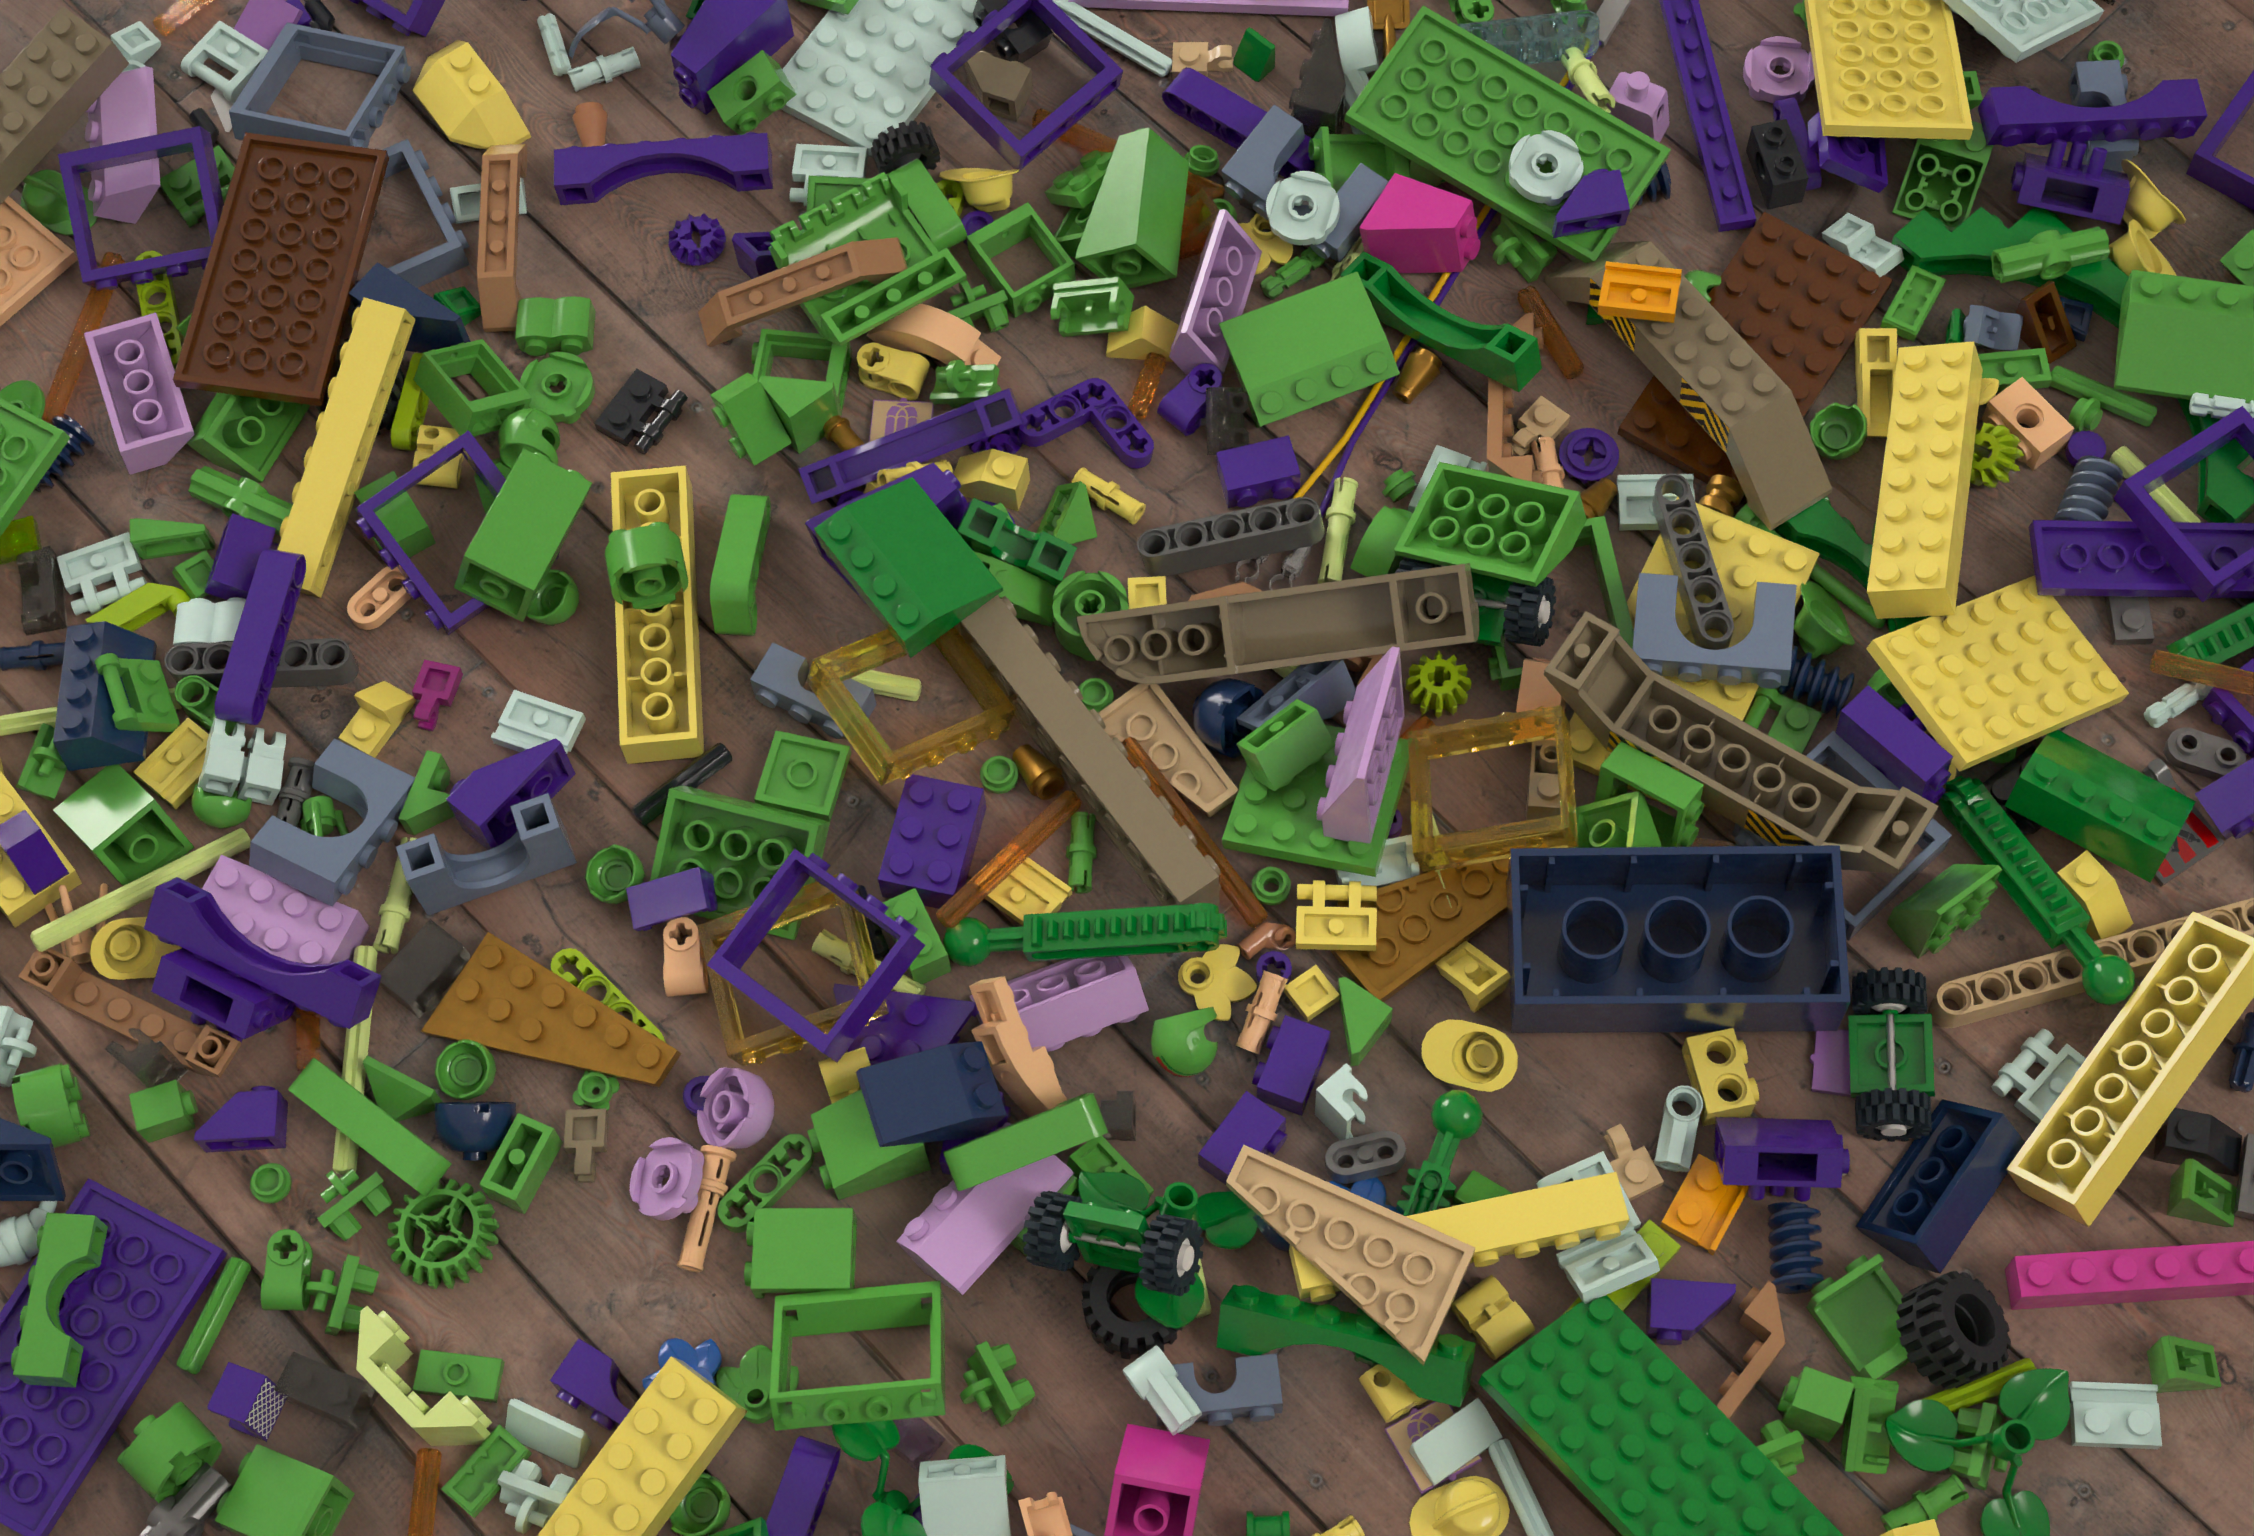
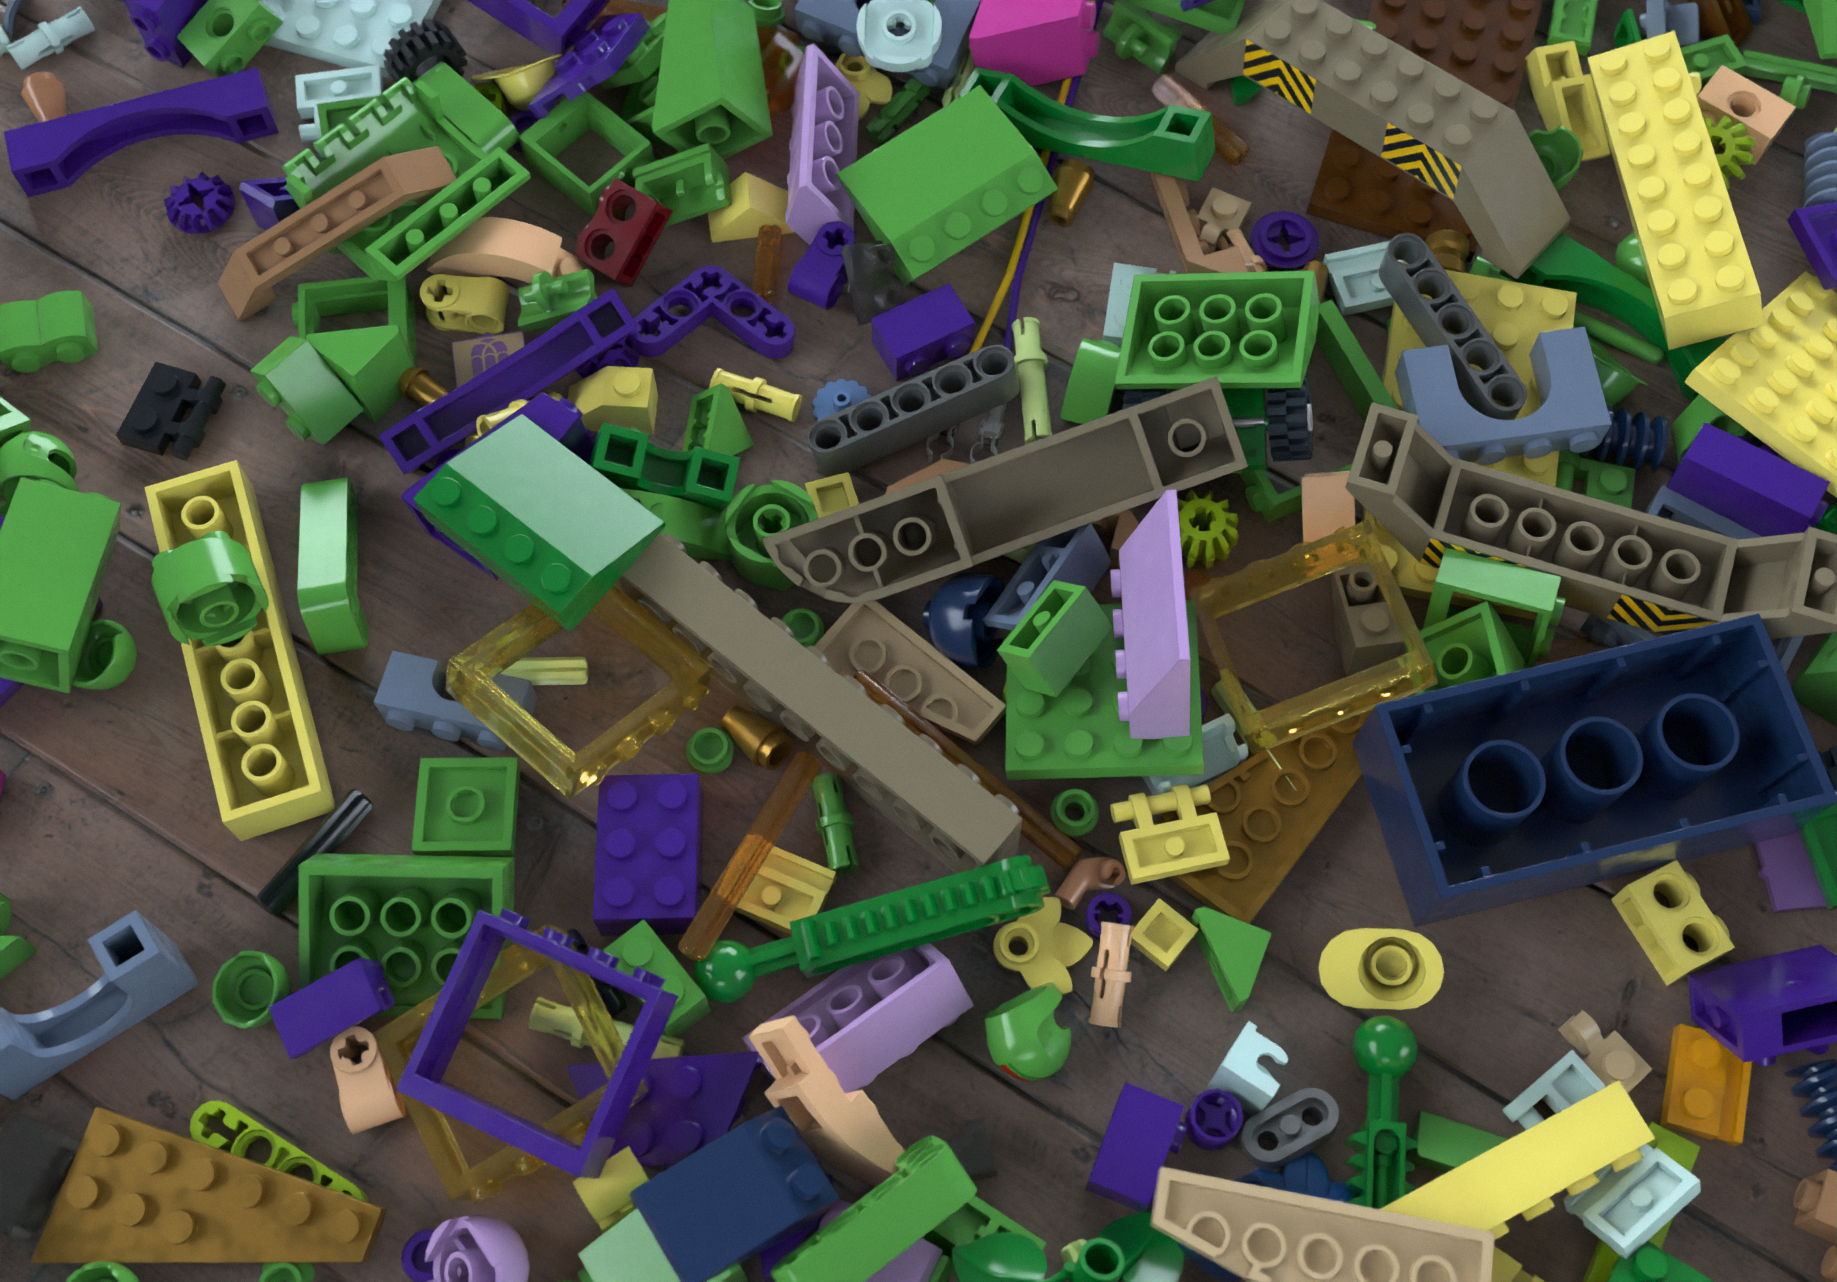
camera: 20 degrees left, 0 degrees up
(485, 796) = (57, 924): dark purple slope -> none
(533, 721) = (115, 822): light aqua plate -> none
(578, 384) = (84, 413): bright green plate -> none
(990, 307) = (562, 211): bright green hips -> none
(1038, 343) = (632, 238): none -> dark red brick
(1043, 181) = (594, 58): none -> dark purple wing
(1175, 511) = (837, 397): none -> medium blue piece
(1292, 1064) = (1167, 1032): dark purple brick -> none
(1306, 1128) = (1219, 1112): none -> dark purple wheel
(1399, 485) = (1086, 315): bright green plate -> none
(1473, 974) = (1351, 865): light yellow slope -> none
(1639, 292) = (1314, 38): light orange plate -> none
(1677, 1131) = (1649, 1005): light aqua piece -> none
(1683, 1307) = (1732, 1229): dark purple slope -> none
(2084, 444) = (1800, 127): dark purple tile -> none

